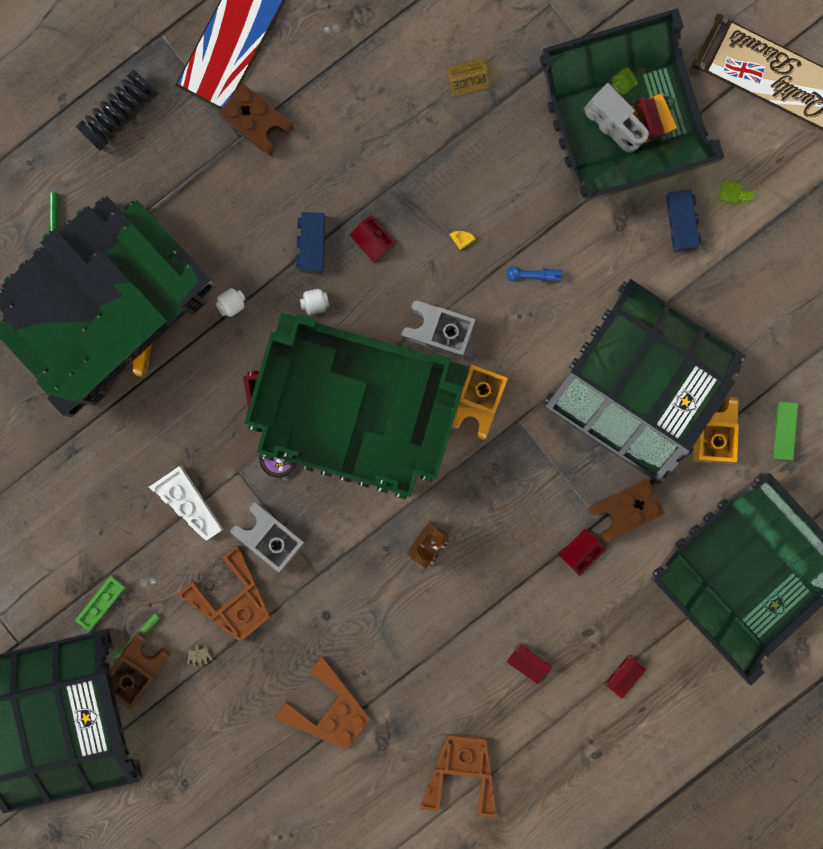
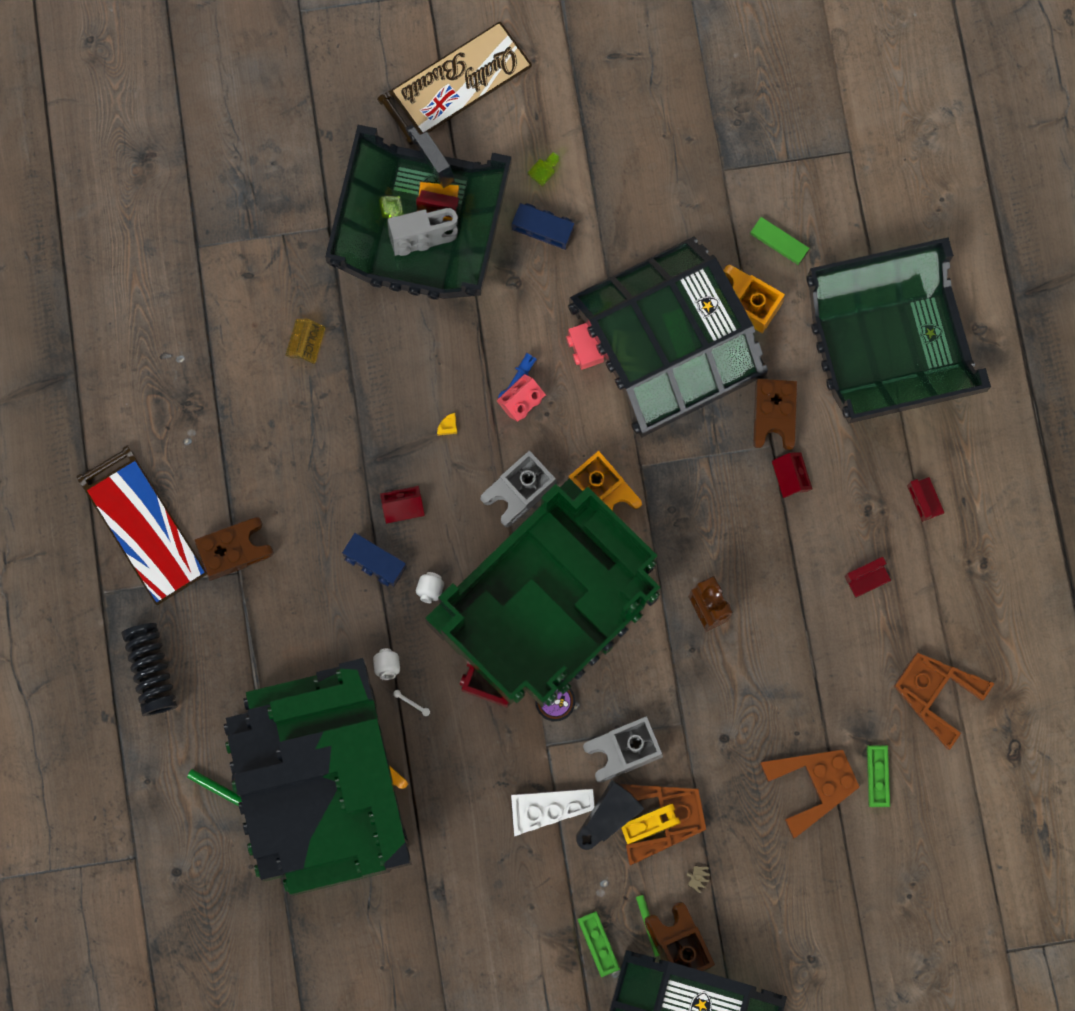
camera: 65 degrees left, 10 degrees down
(209, 556) = (610, 814): none -> black piece
(210, 356) = (425, 711): none -> white hinge
(218, 593) = (649, 824): none -> yellow plate
(365, 760) = (878, 776): none -> bright green tile
(519, 287) = (521, 398): none -> coral brick
(592, 316) = (584, 347): none -> coral brick
(689, 89) = (432, 155): none -> black piece

